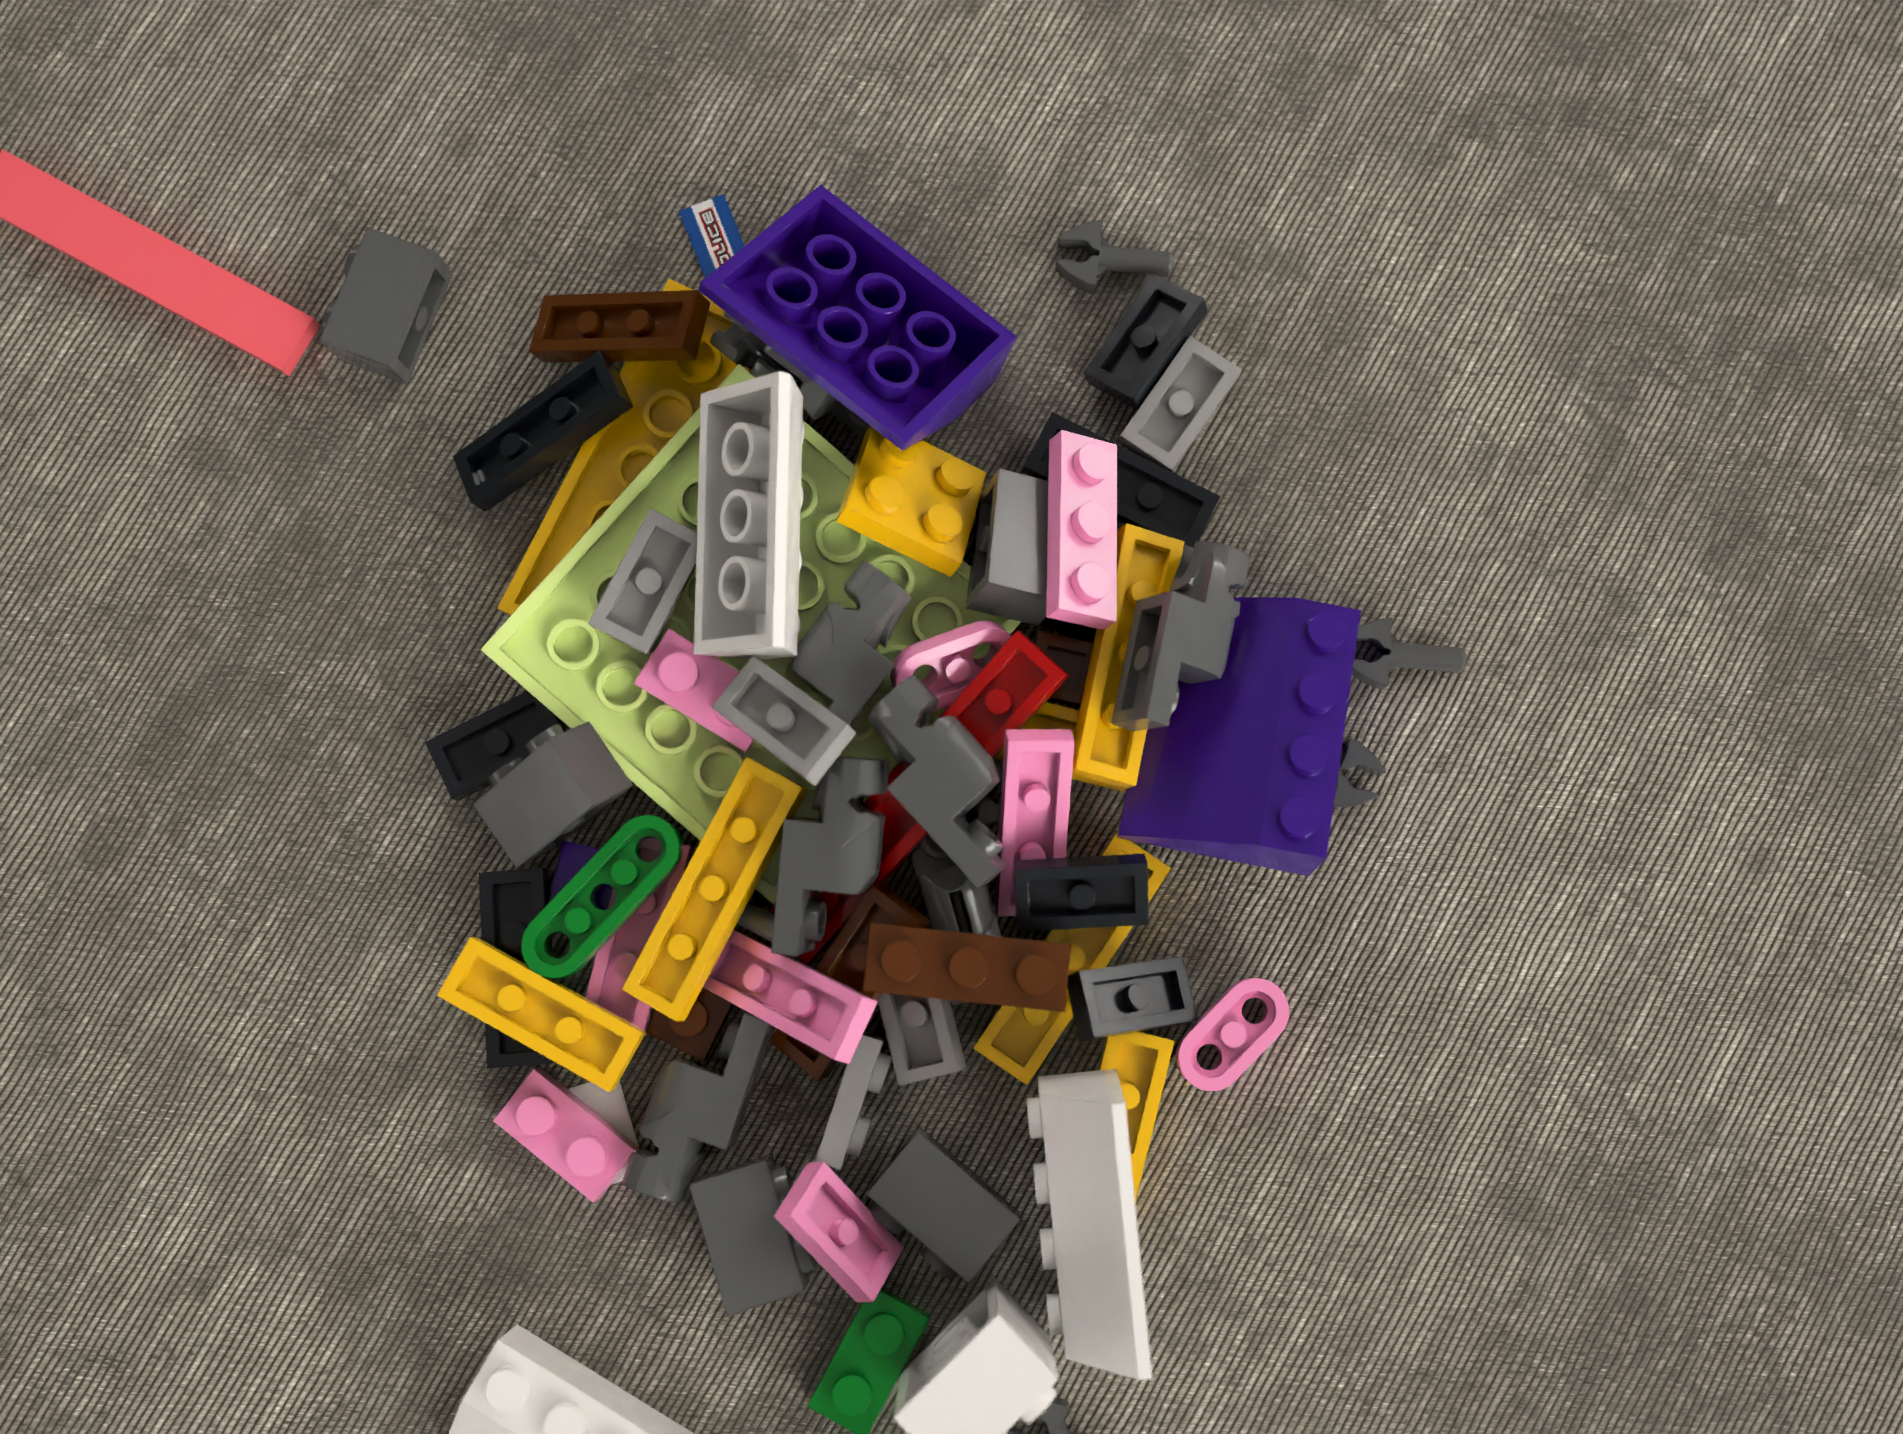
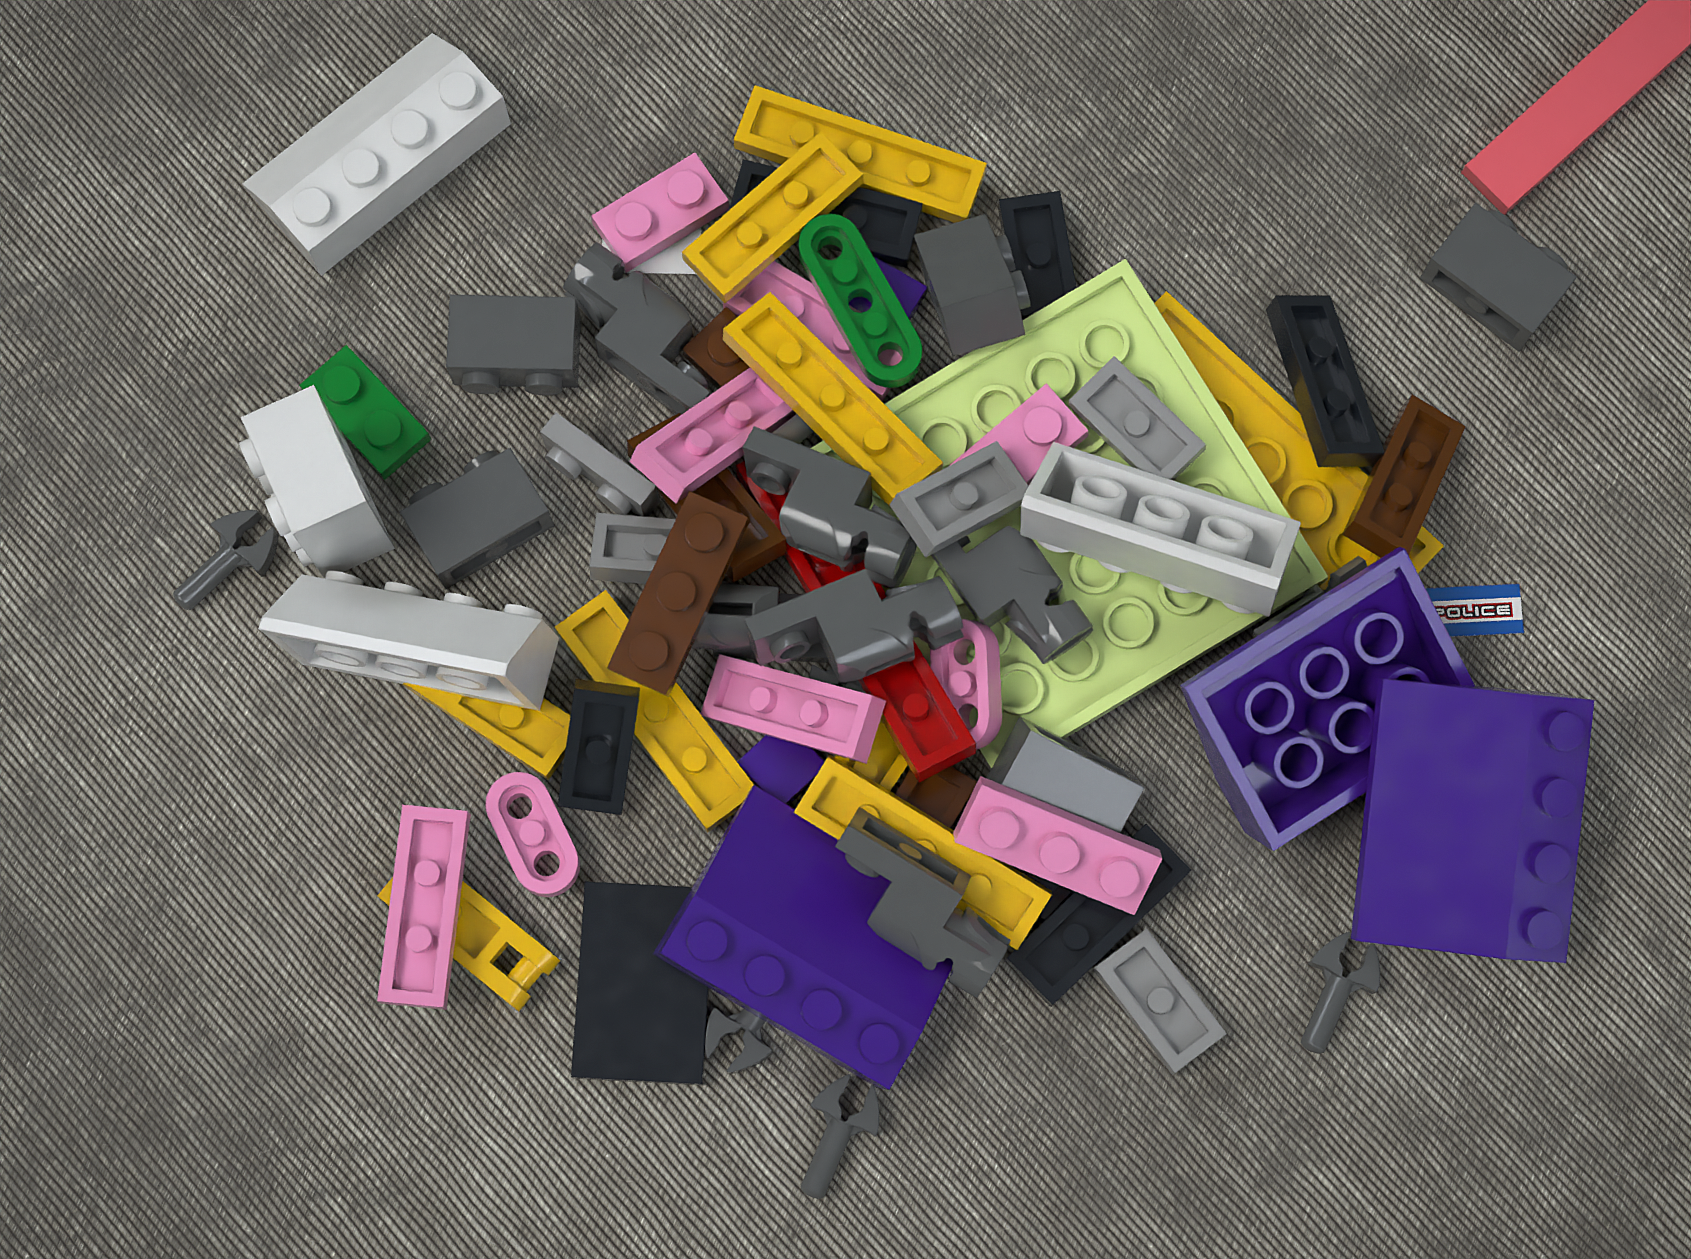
camera: 105 degrees right, 5 degrees down
(445, 915) = (890, 162): none -> yellow plate
(839, 1231) = (486, 415): bright pink plate -> none
(913, 500) = (1135, 703): yellow plate -> none
(925, 166) = (1472, 820): none -> dark purple slope
(1081, 892) = (712, 728): black plate -> none
(1090, 821) = (781, 767): none -> dark purple tile
(1145, 341) = (1236, 989): black plate -> none
(1341, 1065) = (483, 936): none -> yellow plate
(1349, 1109) = (424, 907): none -> bright pink plate
(1364, 887) = (633, 1009): none -> black tile

